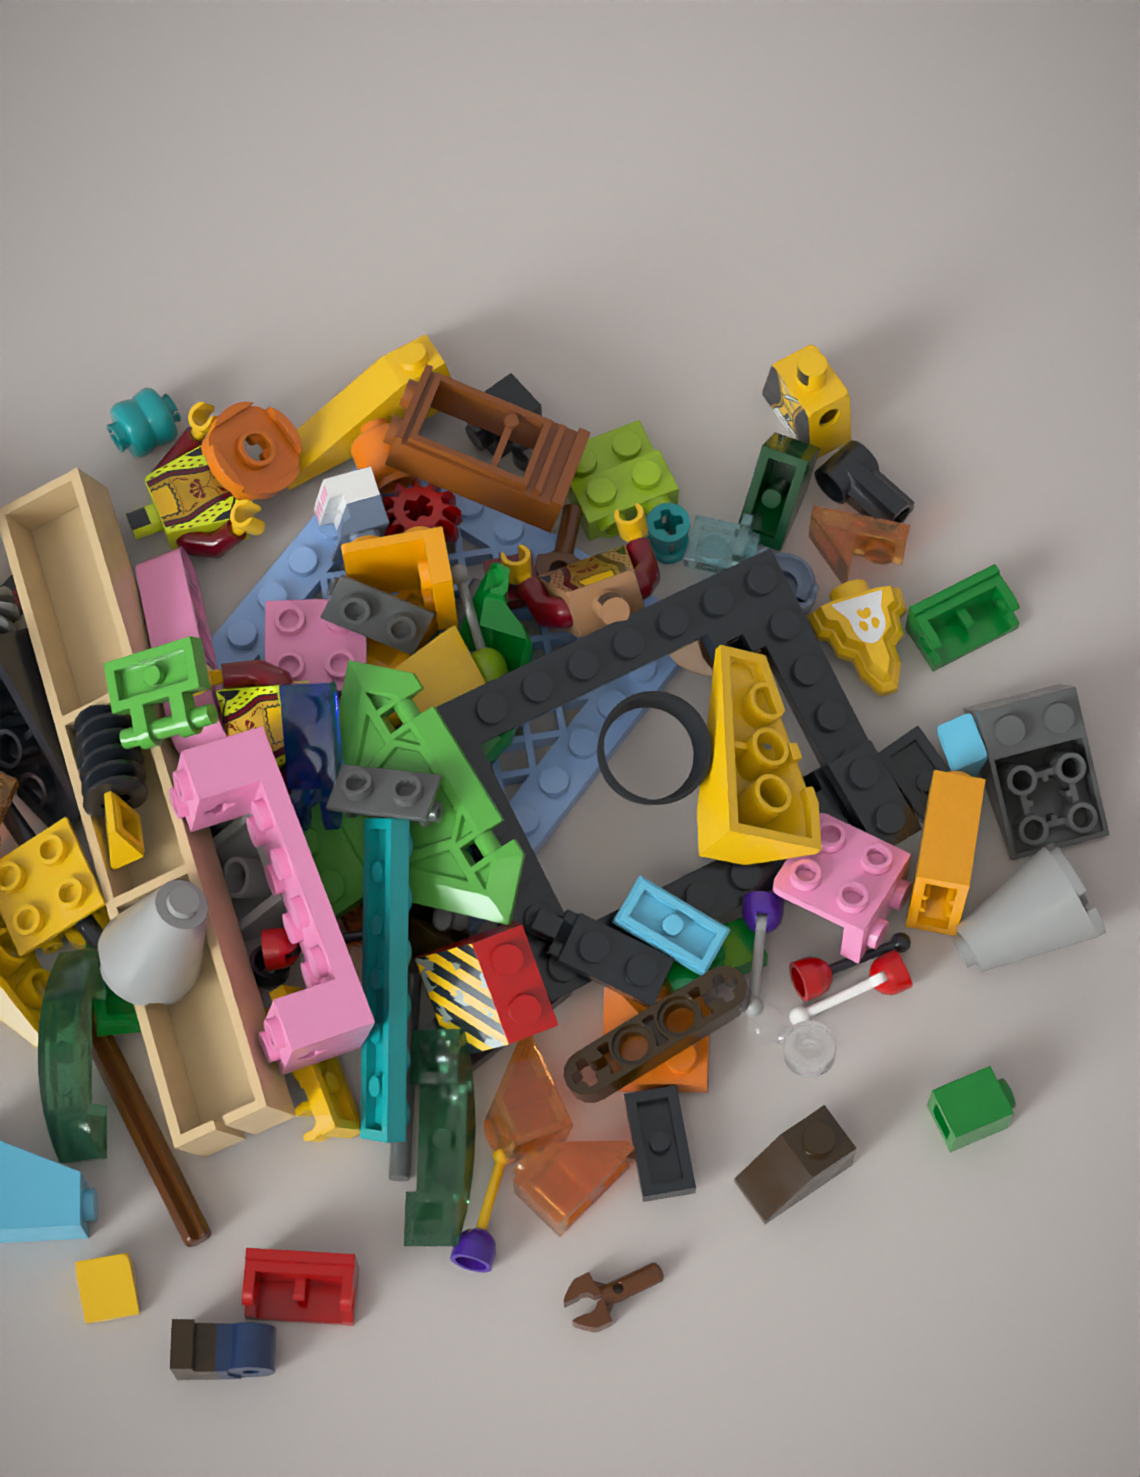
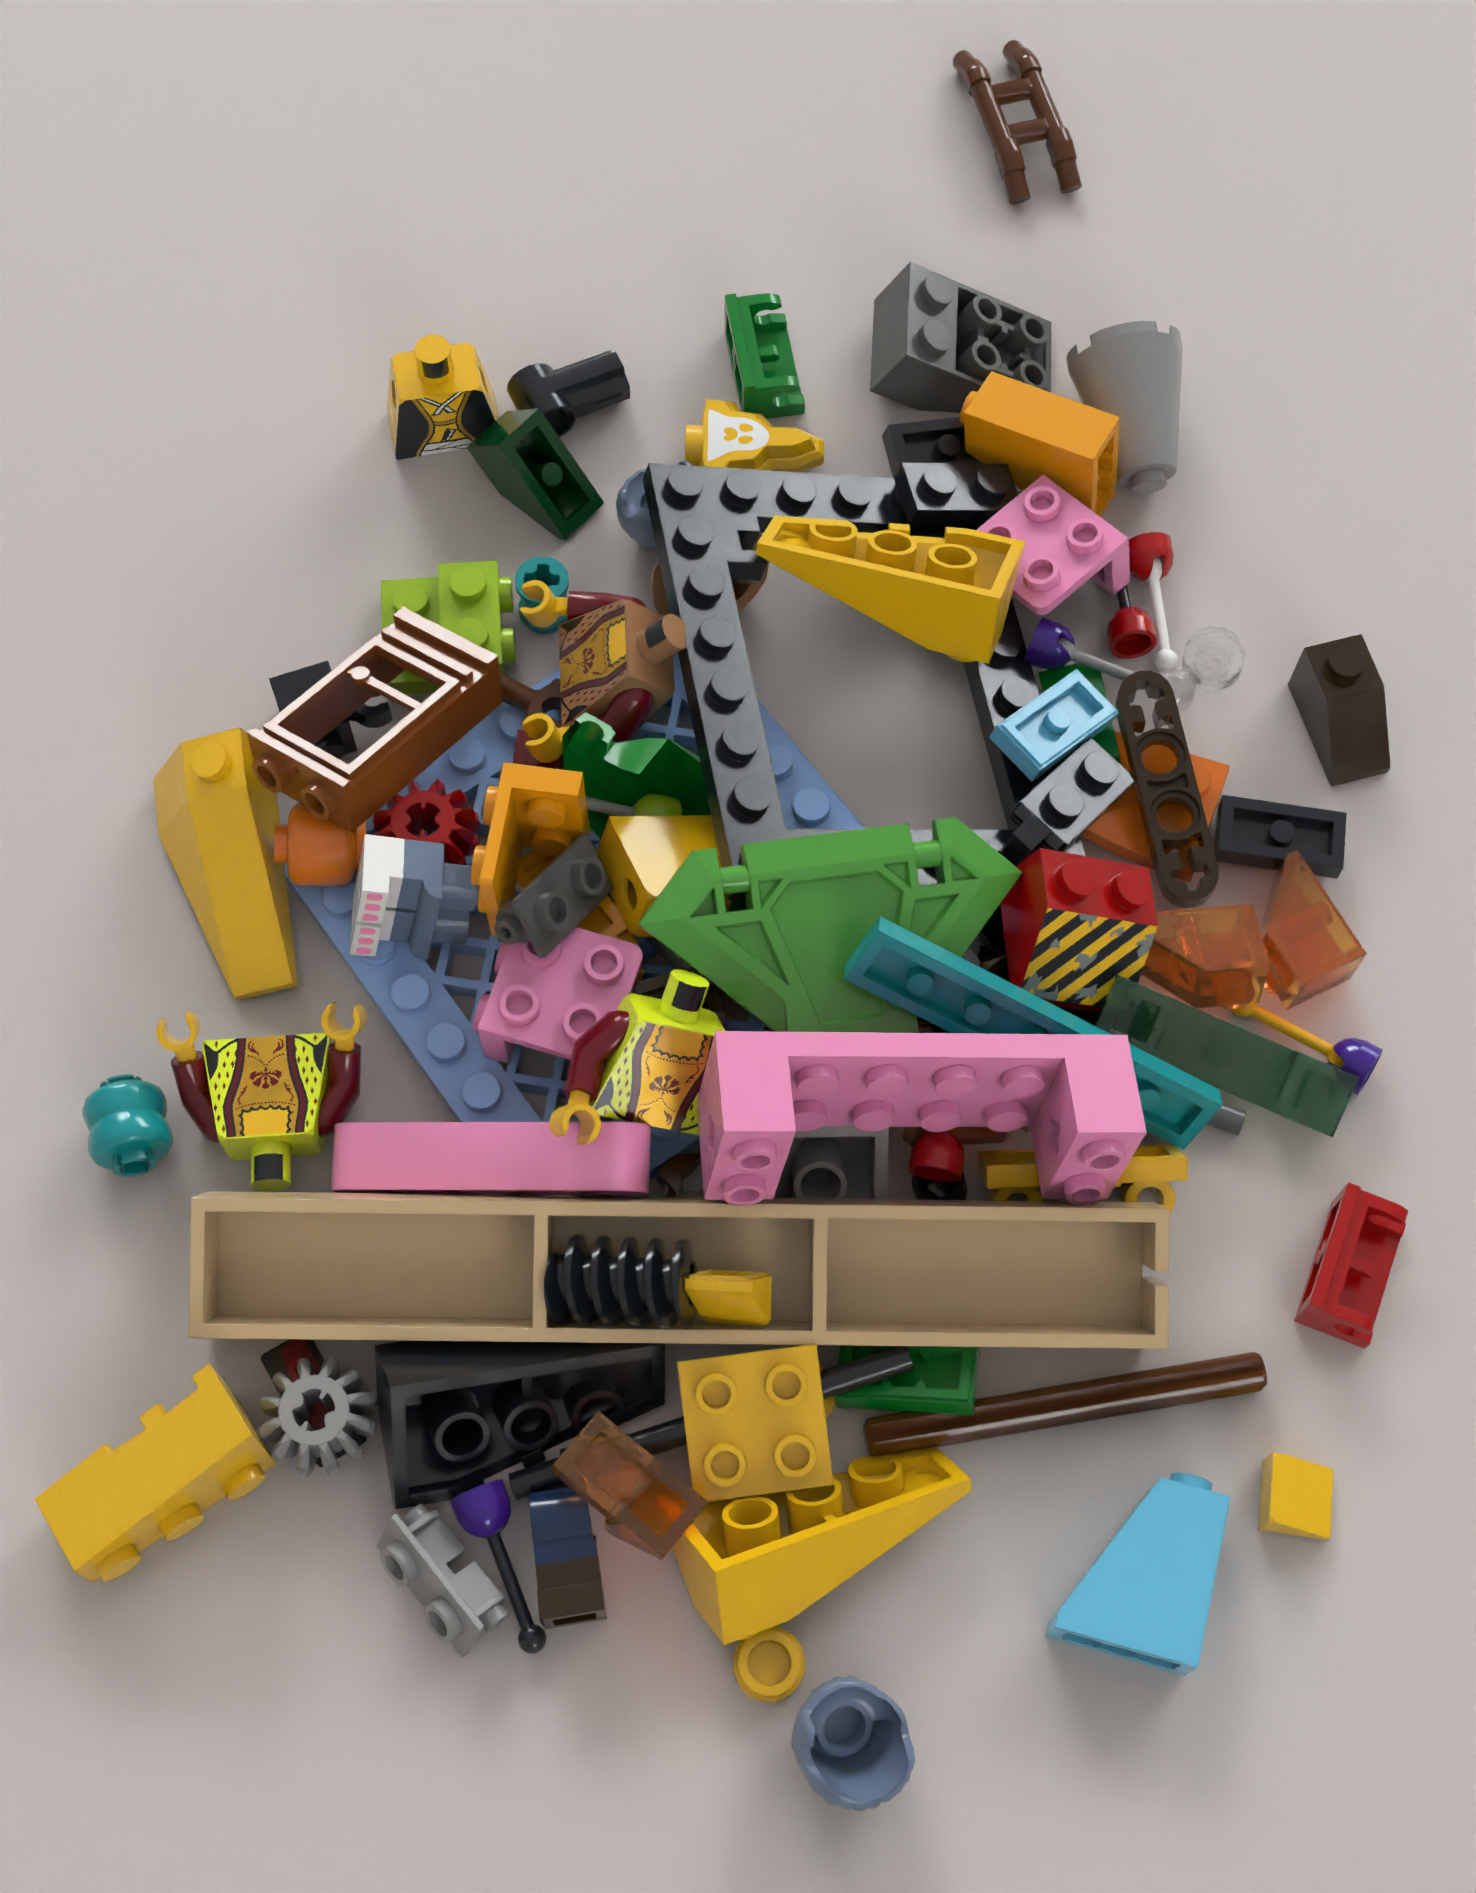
camera: 75 degrees left, 0 degrees up
(65, 1058) = (991, 1448): clear green slope -> none
(155, 677) = (568, 1159): bright green plate -> none
(156, 945) = (910, 1280): light grey cone -> none
(221, 1350) = (1411, 1380): leg -> none
(235, 468) = (236, 1016): orange plate -> none
(311, 747) = (727, 996): hinge -> none
(386, 794) = (836, 934): dark grey hinge -> none
(609, 1294) = (1419, 965): reddish brown bar -> none
(687, 716) = (877, 619): black tyre -> none
(720, 544) = (586, 541): clear light blue bracket -> none
(845, 534) = (629, 425): clear orange slope -> none
(963, 745) = (921, 395): medium azure slope -> none
(972, 1108) = (1325, 533): green brick -> none

